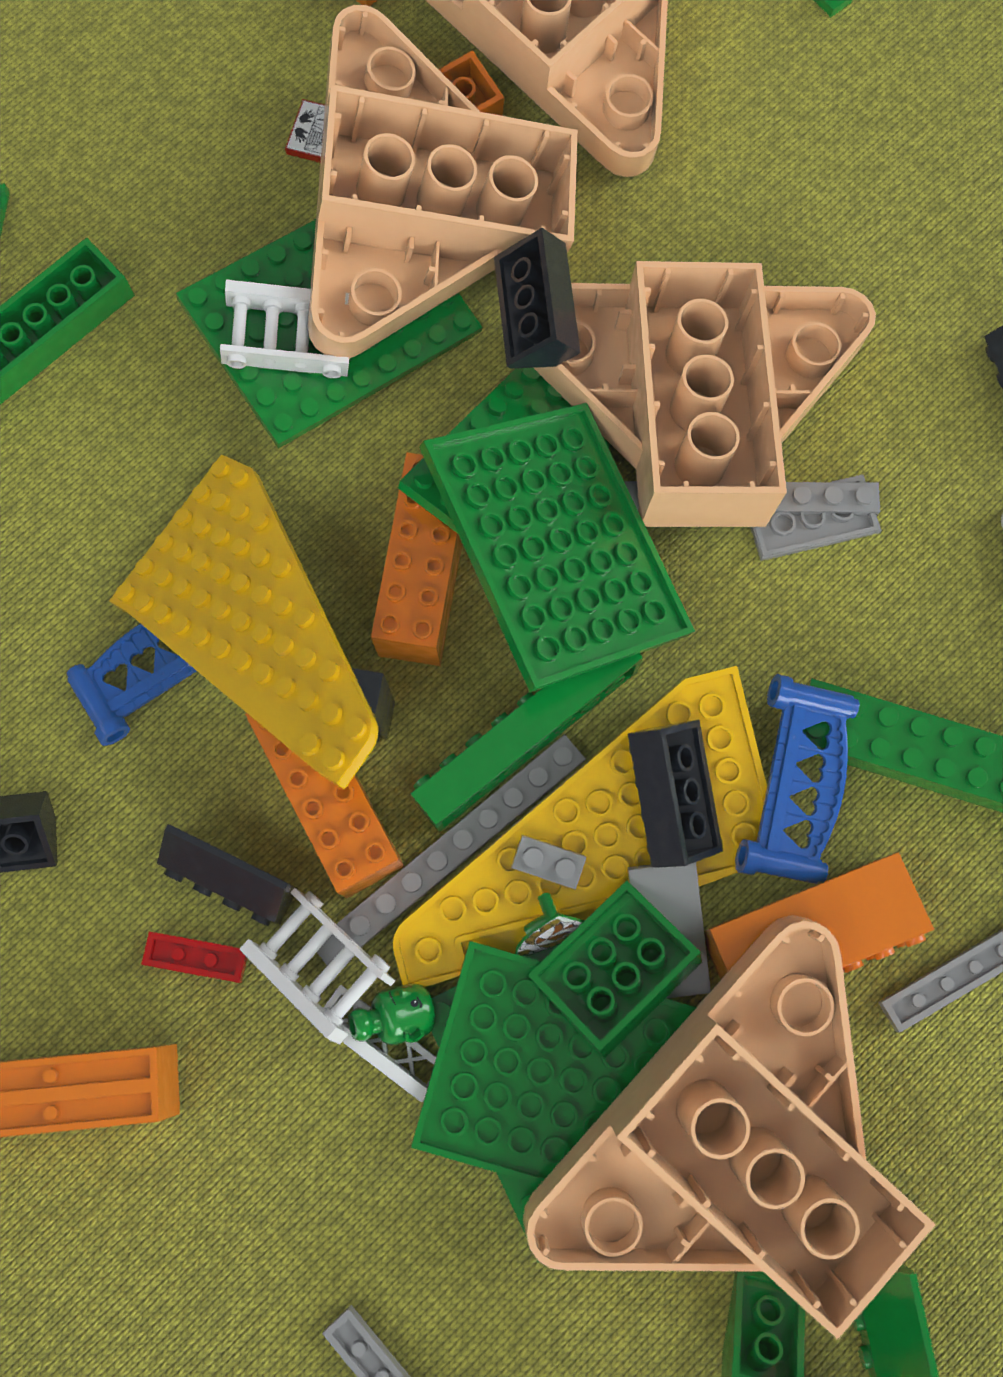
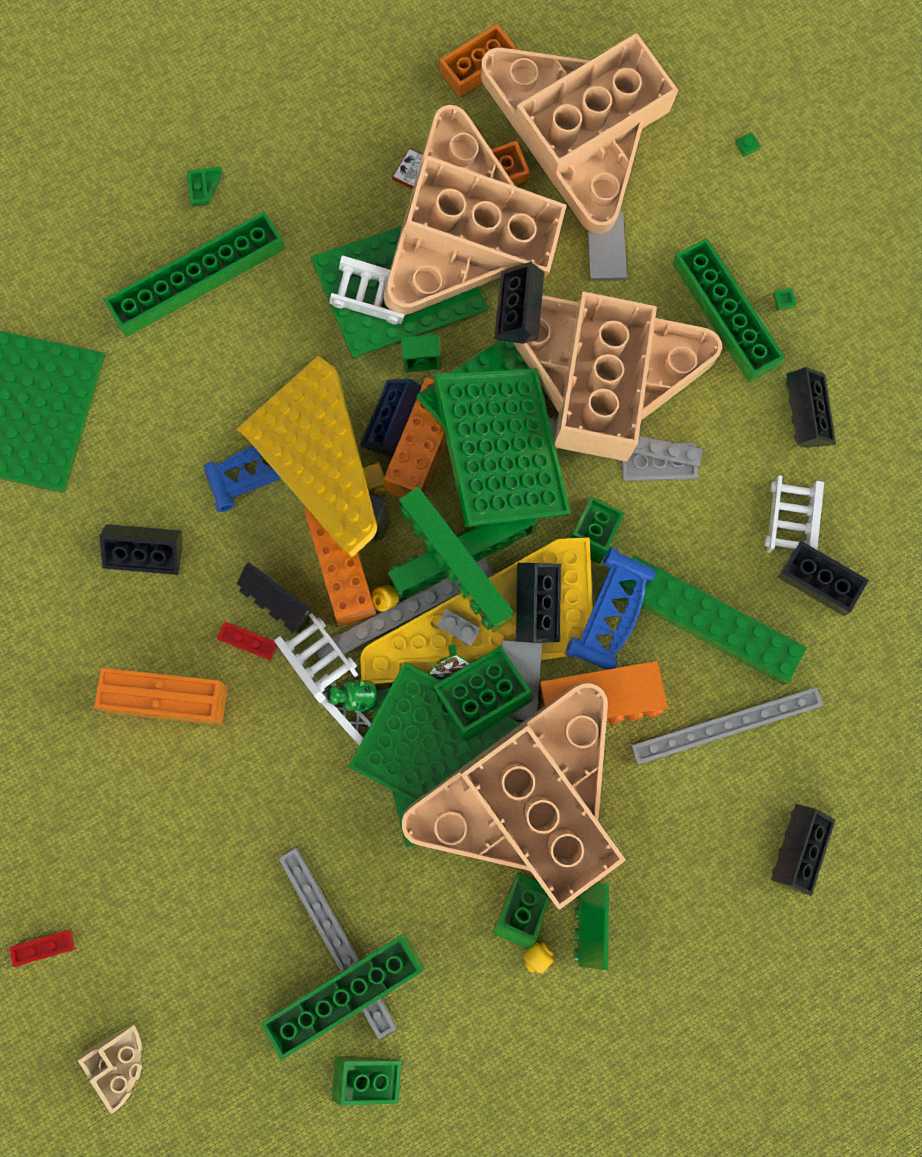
camera: 10 degrees right, 0 degrees up
(354, 638) = (374, 479): none -> yellow brick
(361, 530) = (390, 416): none -> dark blue slope
(389, 416) = (421, 352): none -> green brick
(412, 835) = (384, 597): none -> yellow head
(522, 750) = (455, 559): none -> green brick
(654, 204) = (608, 253): none -> light grey tile
(742, 638) = (599, 524): none -> green slope
(868, 253) = (728, 310): none -> green brick
(950, 221) = (784, 299): none -> green plate

